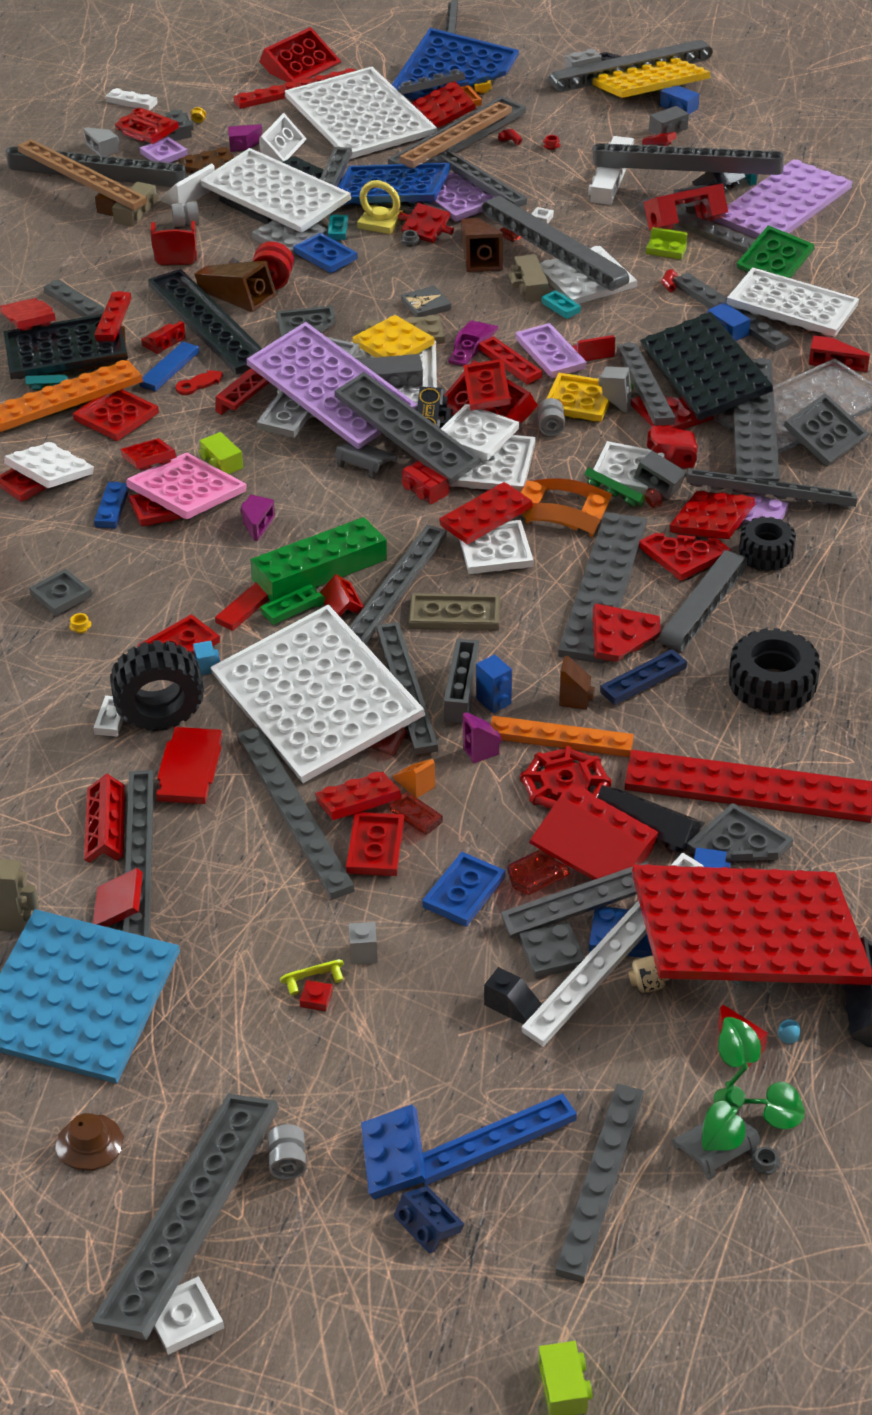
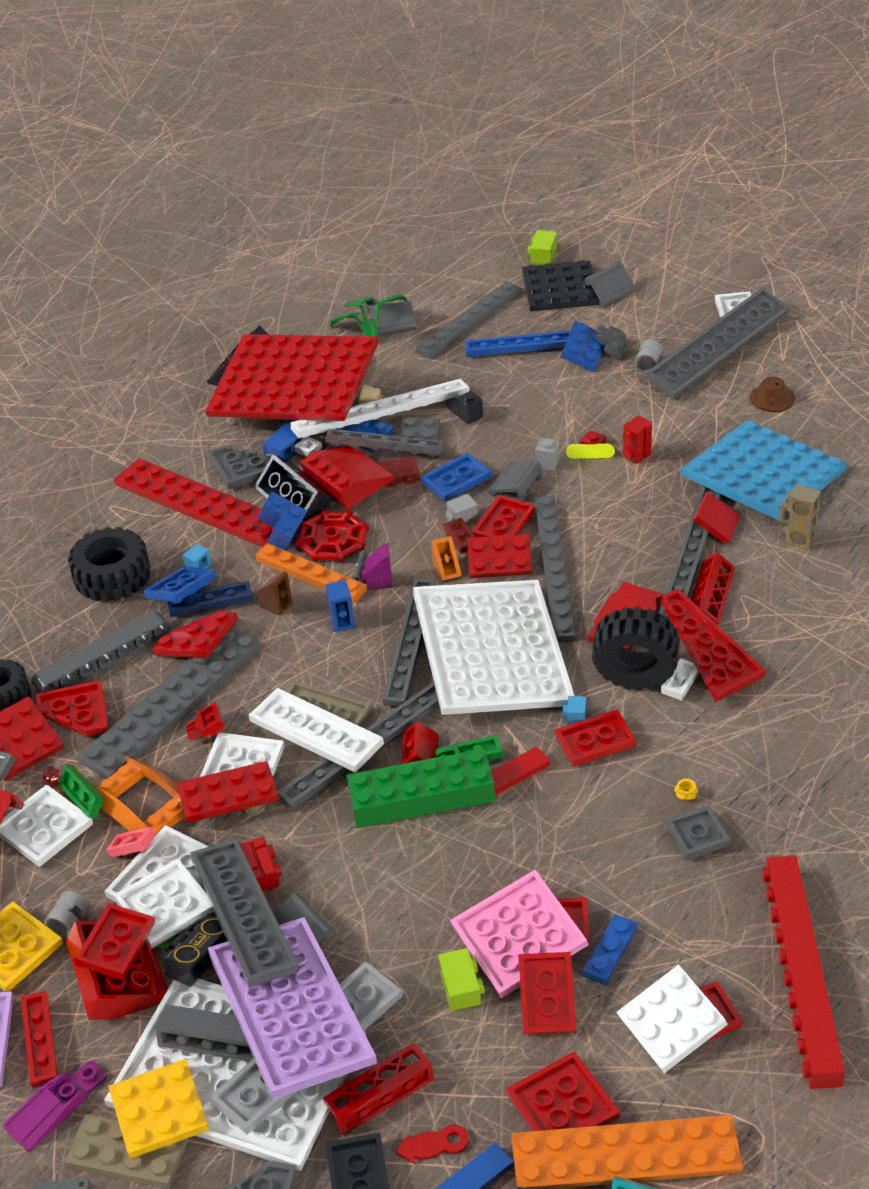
camera: 155 degrees left, 0 degrees up
(86, 742) = (716, 655): none -> red wing
(249, 979) = (637, 439): none -> red brick
(257, 515) = (455, 872): magenta slope -> none
(354, 1173) = (612, 339): none -> dark grey hinge
(389, 901) = (517, 478): none -> dark grey piece
(408, 1301) = (611, 283): none -> dark grey piece
(427, 1217) = (578, 312): dark blue bracket -> none
(430, 840) = (462, 507): none -> light grey brick
(441, 573) = (316, 729): none -> white plate
(461, 680) = (362, 622): dark grey brick -> none
(494, 1301) = (559, 285): none -> black plate
(508, 754) = (359, 565): none -> dark grey piece
(539, 465) = (131, 842): none -> coral plate
(549, 564) = (208, 723): none -> red hinge
(625, 760) = (283, 517): none -> blue brick
(660, 474) = (28, 783): dark grey brick -> none
(680, 669) = (180, 584): none -> blue plate
(691, 709) = (197, 557): none -> dark azure plate

